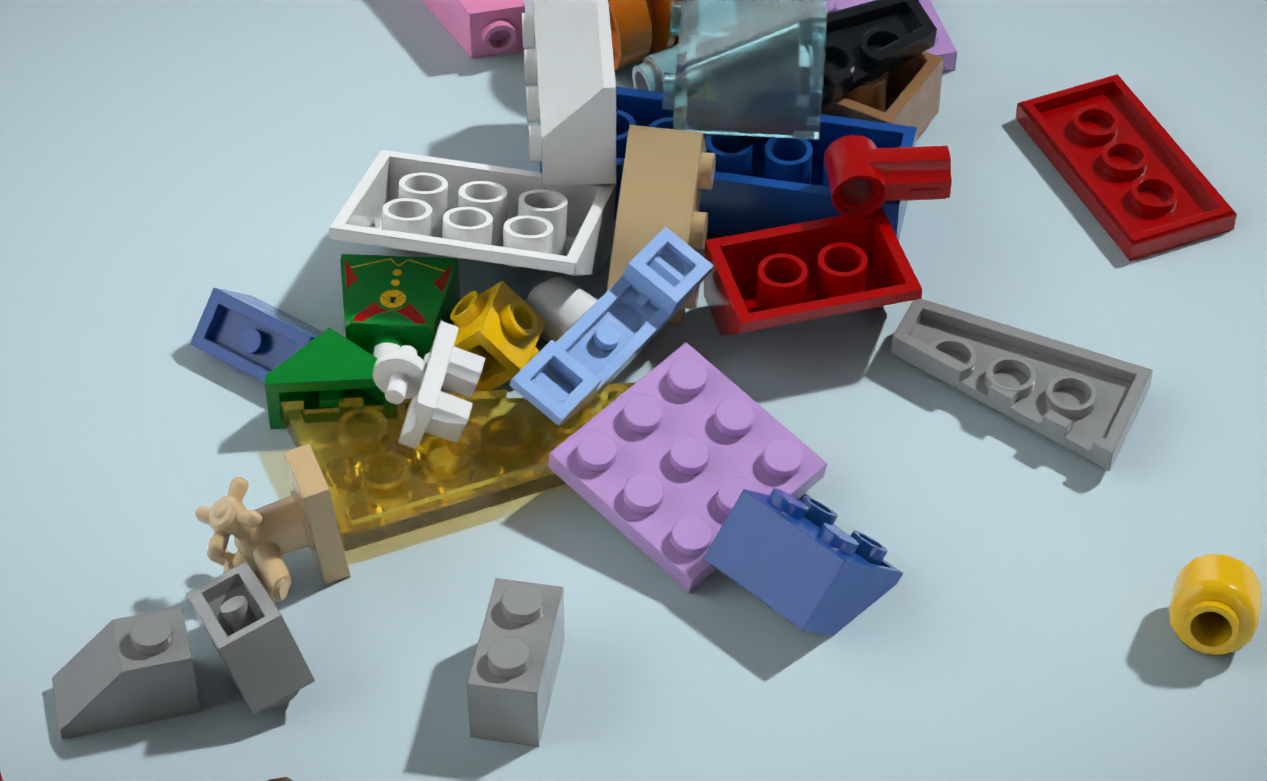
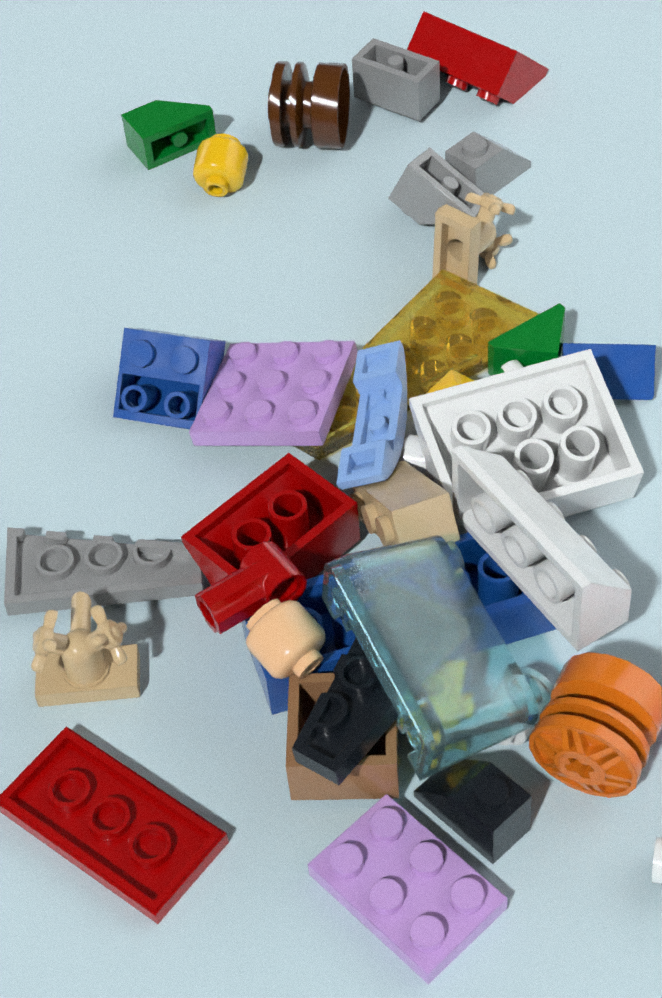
camera: 155 degrees right, 5 degrees up
(408, 376) = (474, 331): white hips -> none
(516, 662) = (291, 251): light grey brick -> none
(883, 108) = (285, 639): none -> light nougat head
(1083, 281) = (84, 663): none -> tan piece

